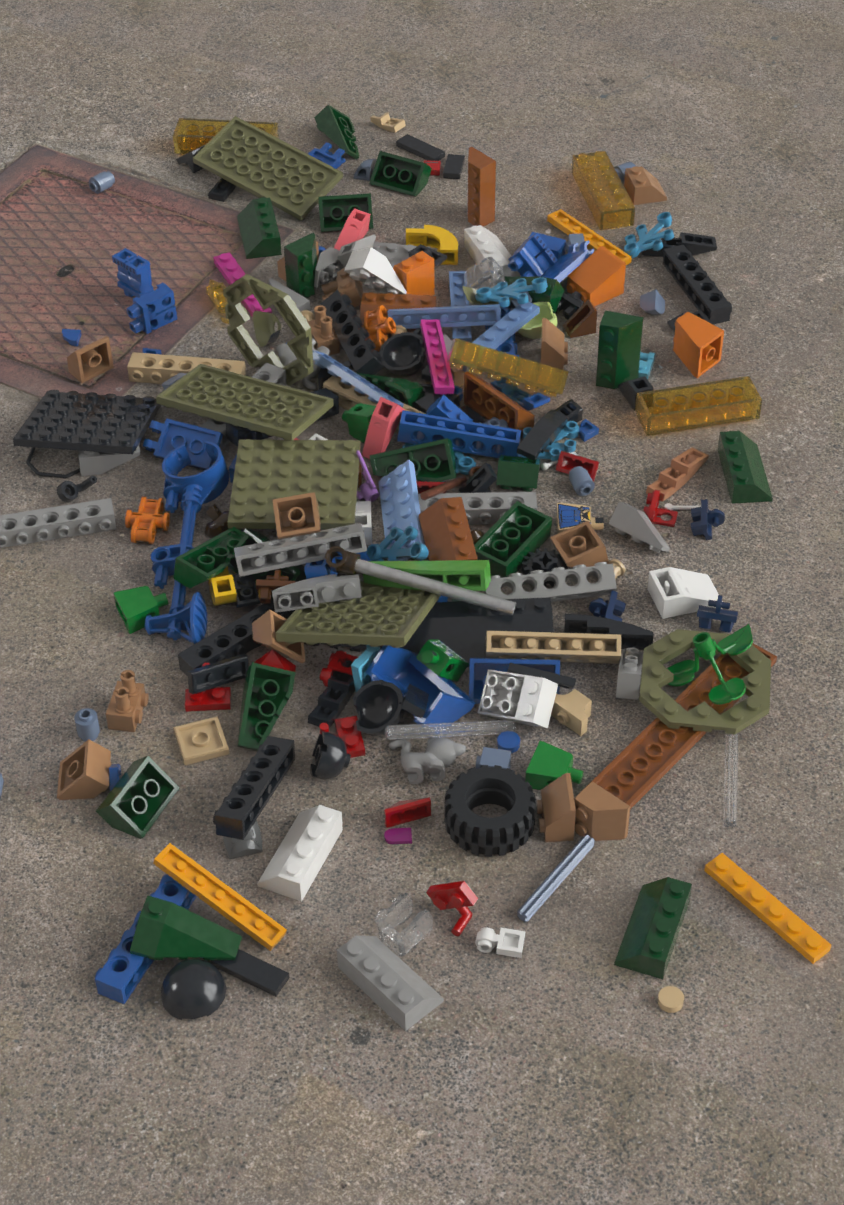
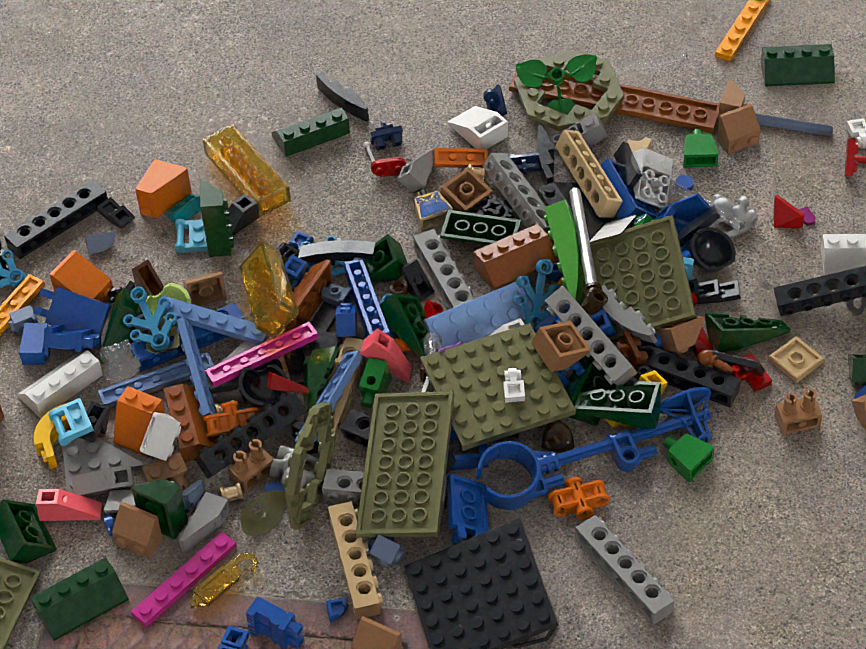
camera: 110 degrees left, 5 degrees up
(69, 491) = (575, 579): black plate -> none
(87, 724) = (835, 428): sand blue brick -> none
(233, 647) = (707, 358): none -> dark orange bar
(271, 476) = (513, 386): none -> white plate
(313, 294) = (193, 494): none -> sand blue brick
(329, 755) = (772, 268): black cylinder -> none
(347, 730) = (741, 270): red plate -> none
(378, 463) = (432, 343): none -> clear cone
(393, 348) = (280, 383): none -> red slope
(429, 240) = (77, 419): none -> medium azure plate
(443, 487) = (446, 293): copper bar -> none
(444, 623) = (613, 228): none -> white sticker
(487, 834) = (763, 179): black tyre -> none
(493, 757) = (718, 176): sand blue brick -> none
(568, 461) = (353, 227): red slope -> none
(581, 481) = (376, 220): sand blue brick -> none
(638, 563) = (459, 157): none -> orange plate
(670, 999) = (844, 49): tan tile -> none
(672, 367) = (185, 209): none -> teal slope
(679, 473) = (331, 167): nougat slope -> none
(783, 501) = (342, 98): none -> black slope

